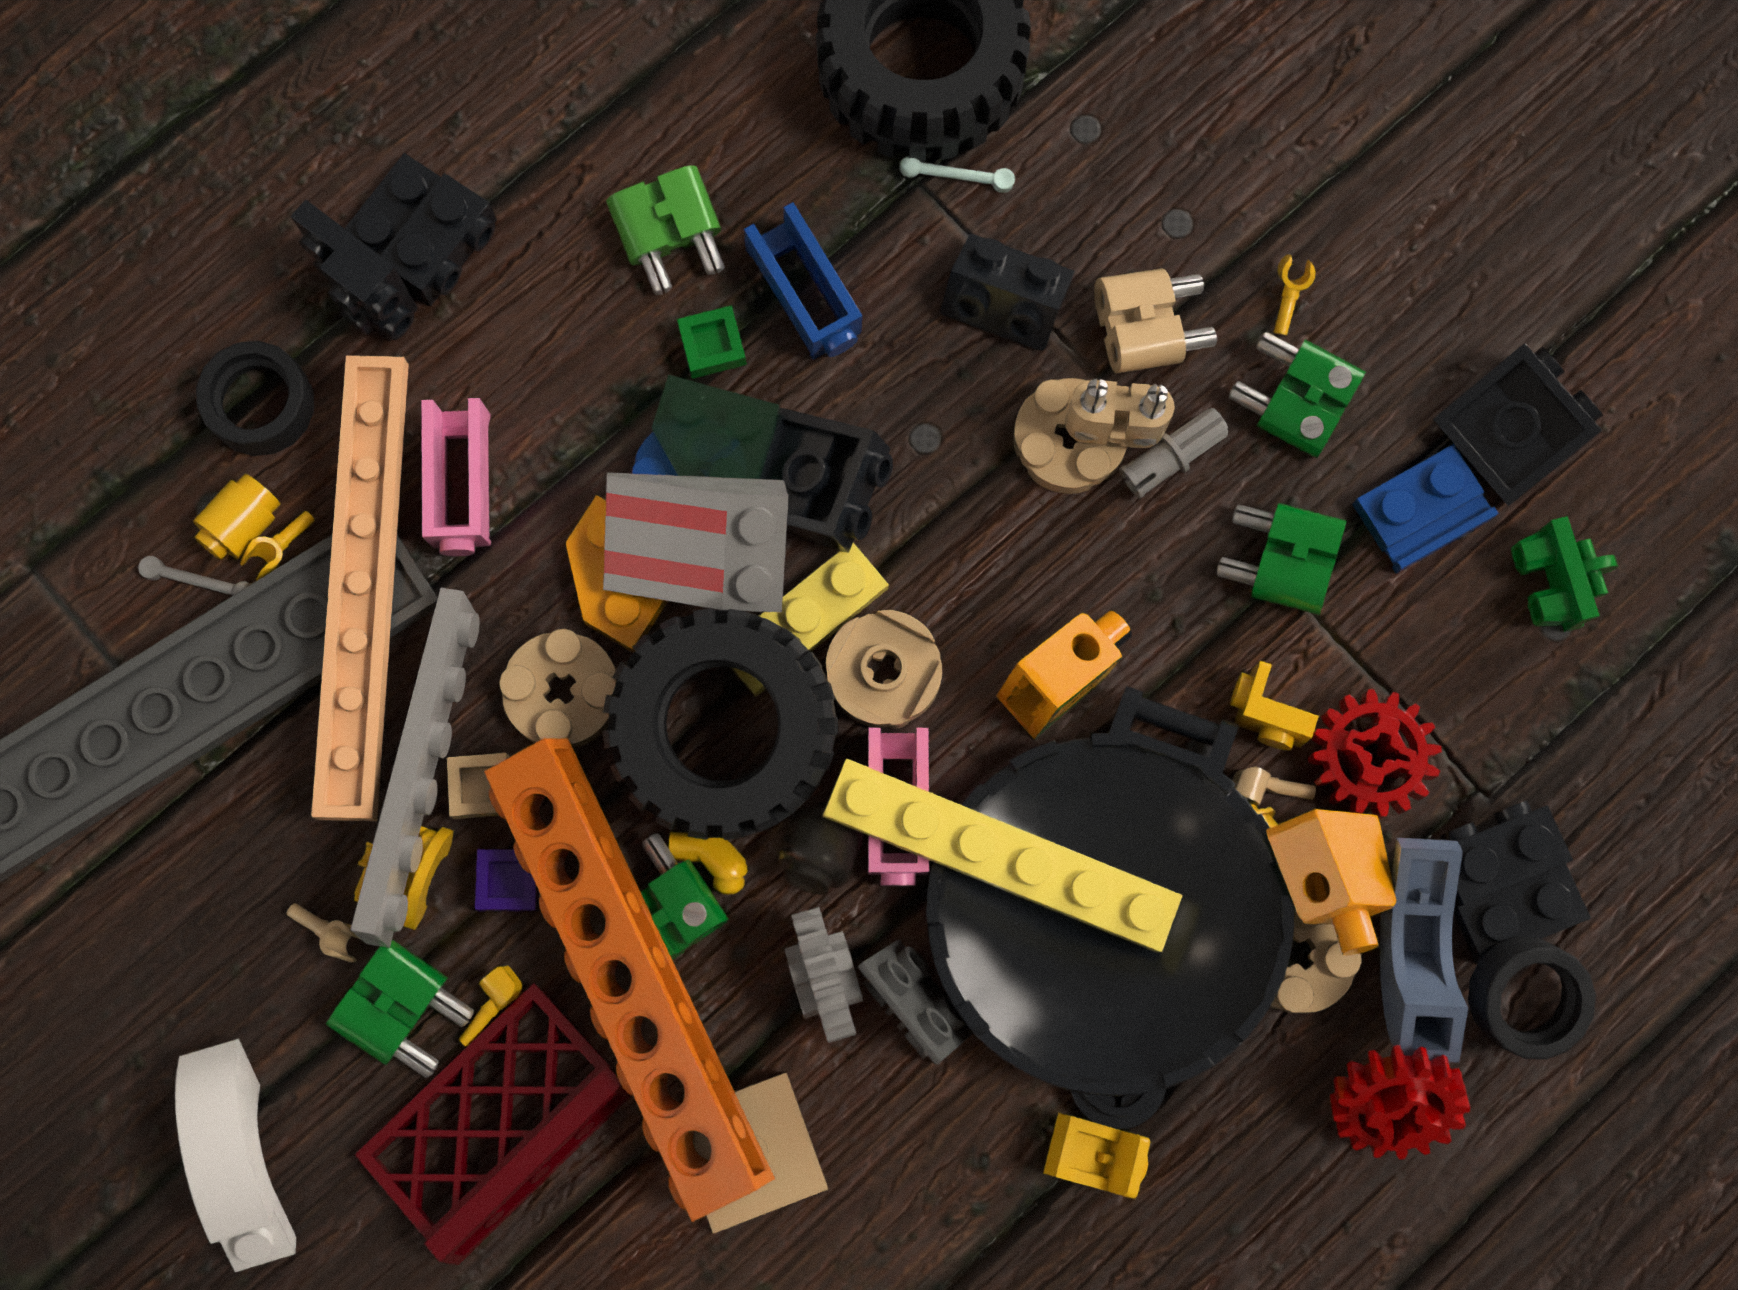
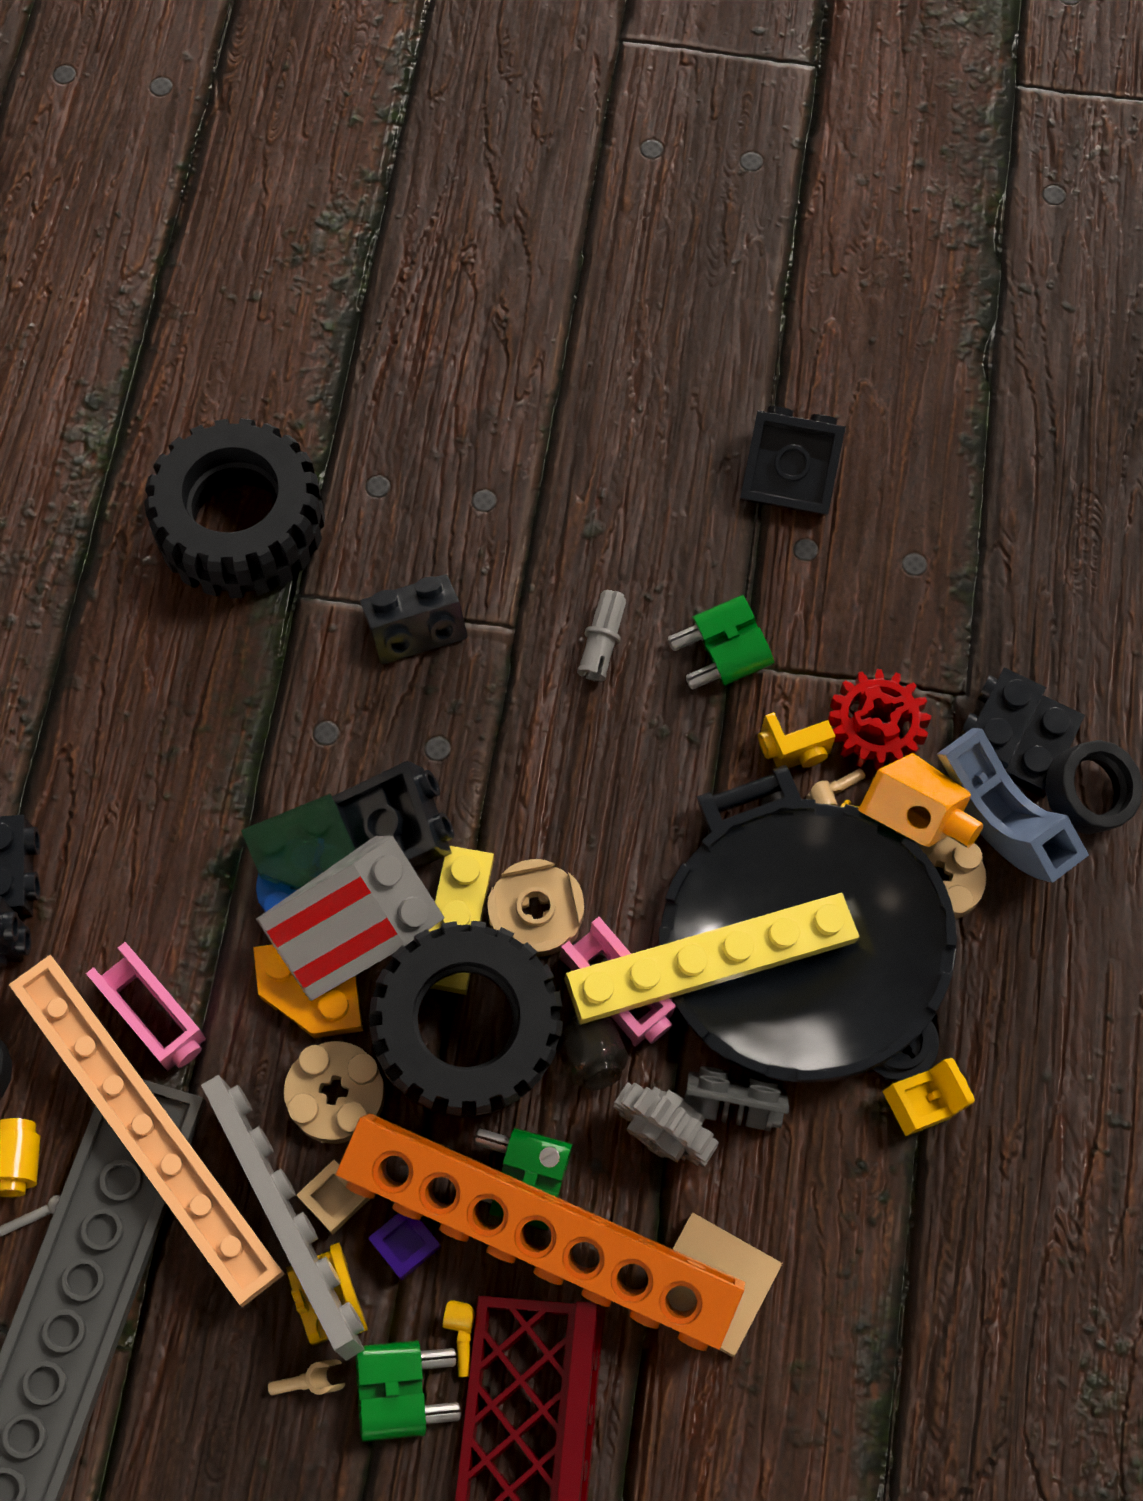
camera: 40 degrees left, 10 degrees down
(272, 548) = (55, 1159): yellow hand -> none
(665, 217) = (150, 738): bright green piece -> none
(712, 342) = (248, 792): green plate -> none
(716, 855) = (527, 1112): yellow arm -> none
(796, 235) = (253, 682): blue window -> none
(1001, 180) = (351, 555): light aqua hinge -> none
(1042, 450) = (534, 650): tan plate -> none
(1063, 670) = (650, 818): light orange torso -> none
(1123, 415) = (560, 632): tan piece -> none
(1142, 321) = (514, 572): tan piece -> none
(1291, 292) = (589, 487): yellow hand -> none
(1308, 397) = (655, 542): green piece -> none
(1399, 1102) = (1075, 910): red gear -> none
(1424, 508) = (780, 554): blue plate -> none
(1572, 573) = (897, 525): green hips -> none

